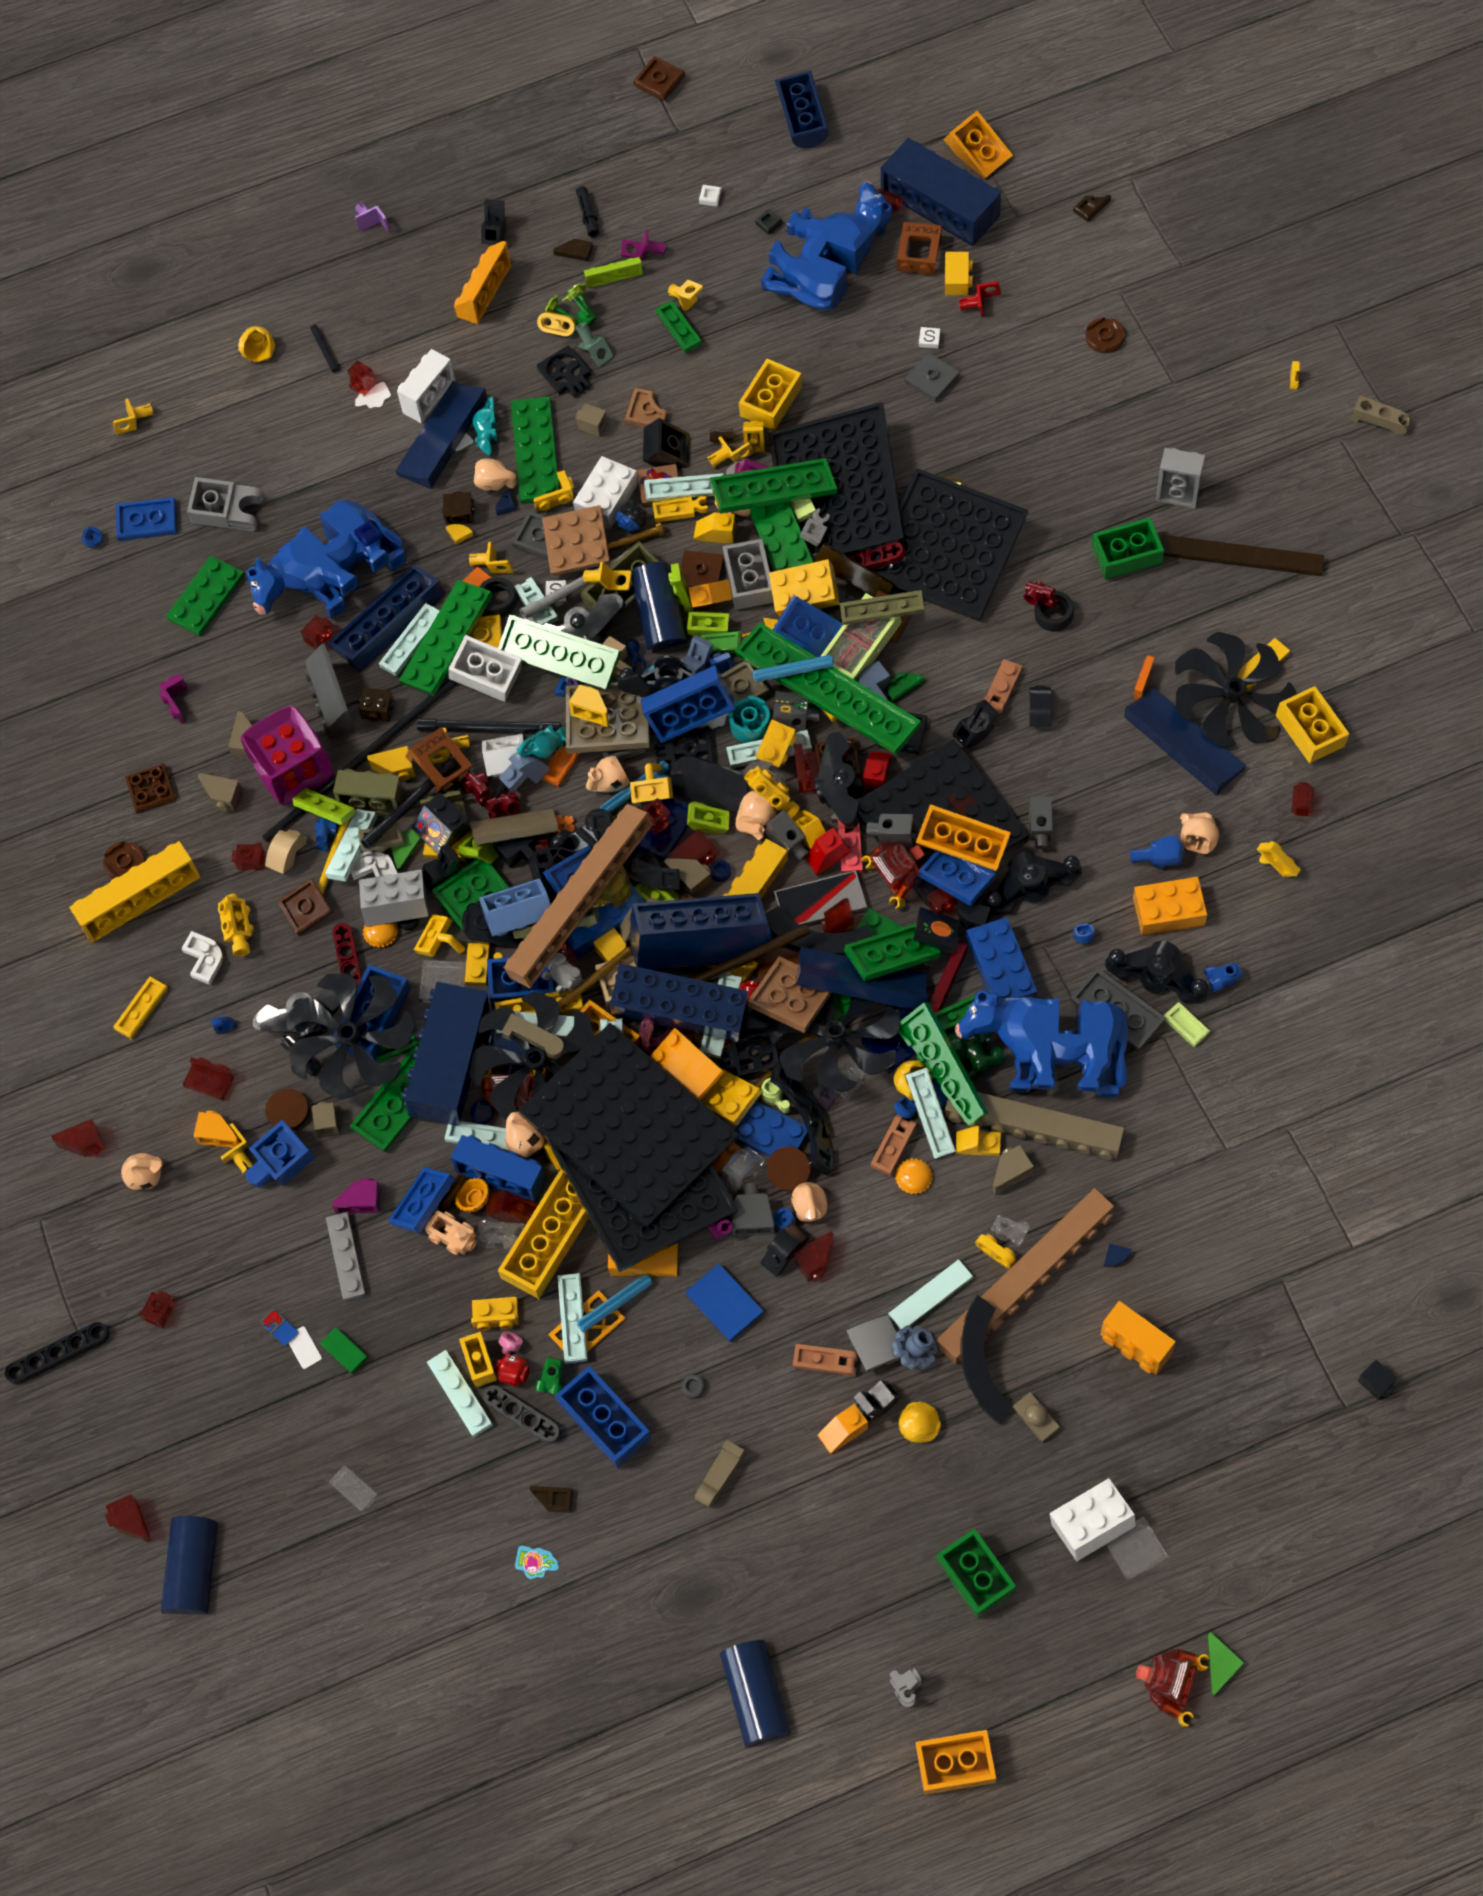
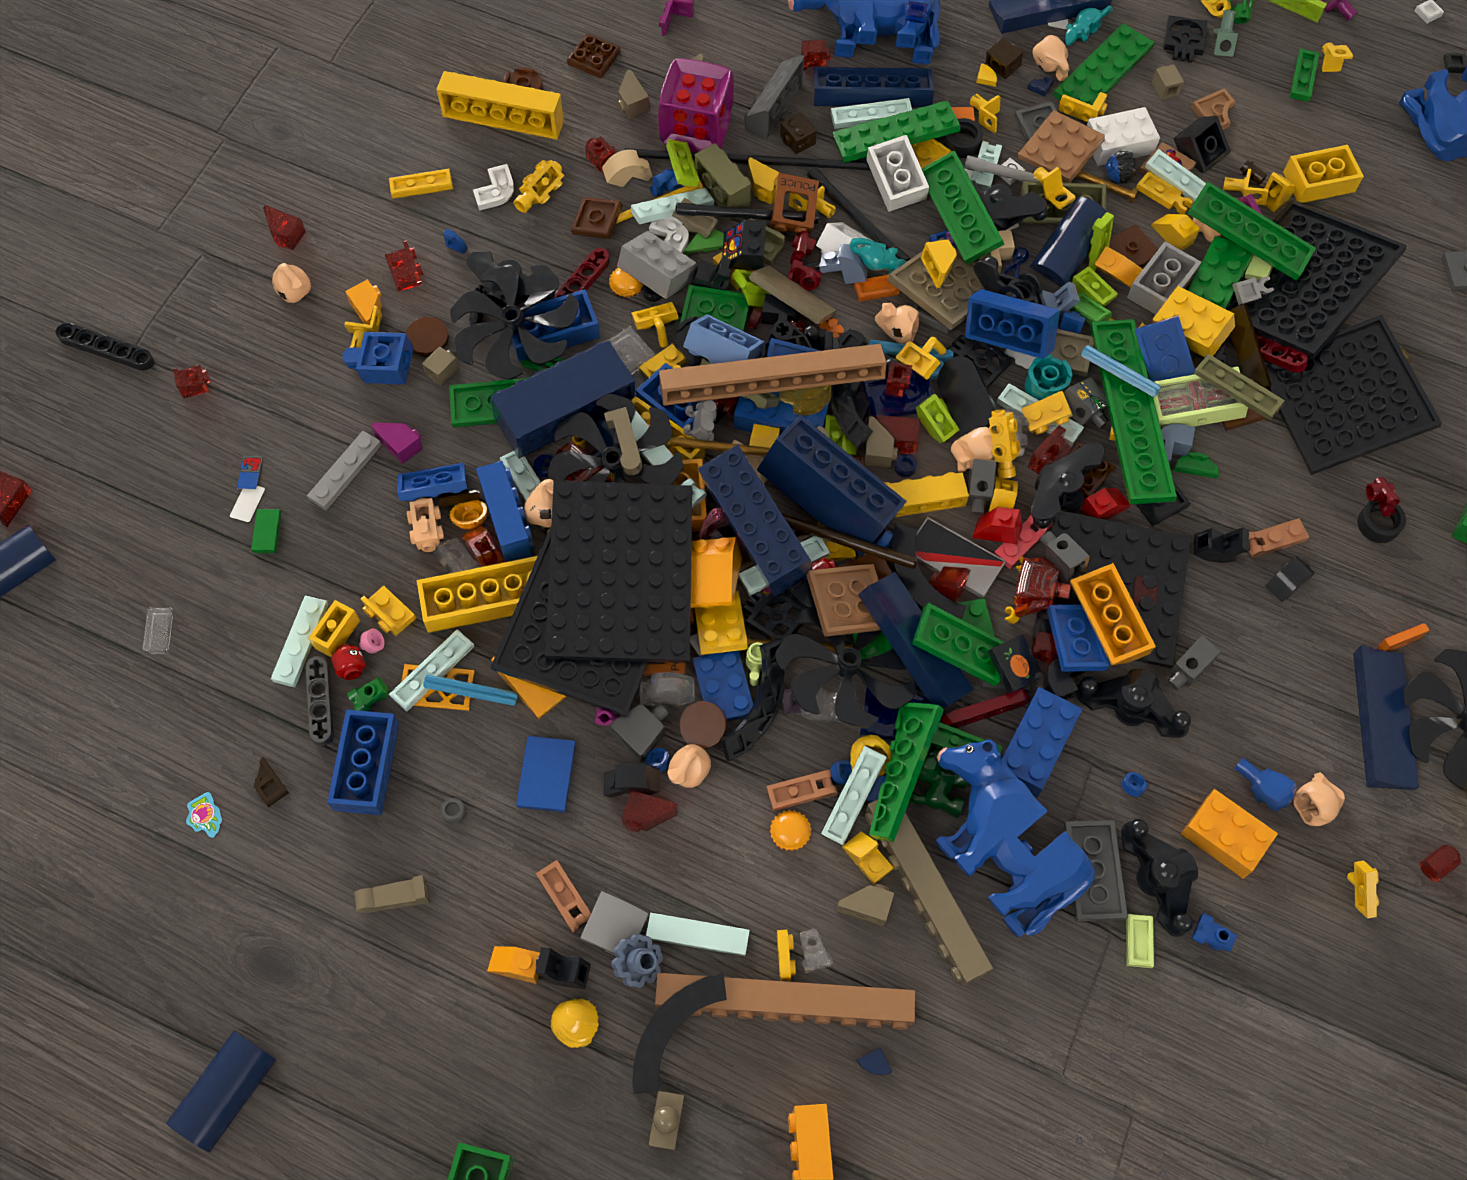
camera: 40 degrees right, 0 degrees up
(504, 868) = (755, 318): none -> clear red tile

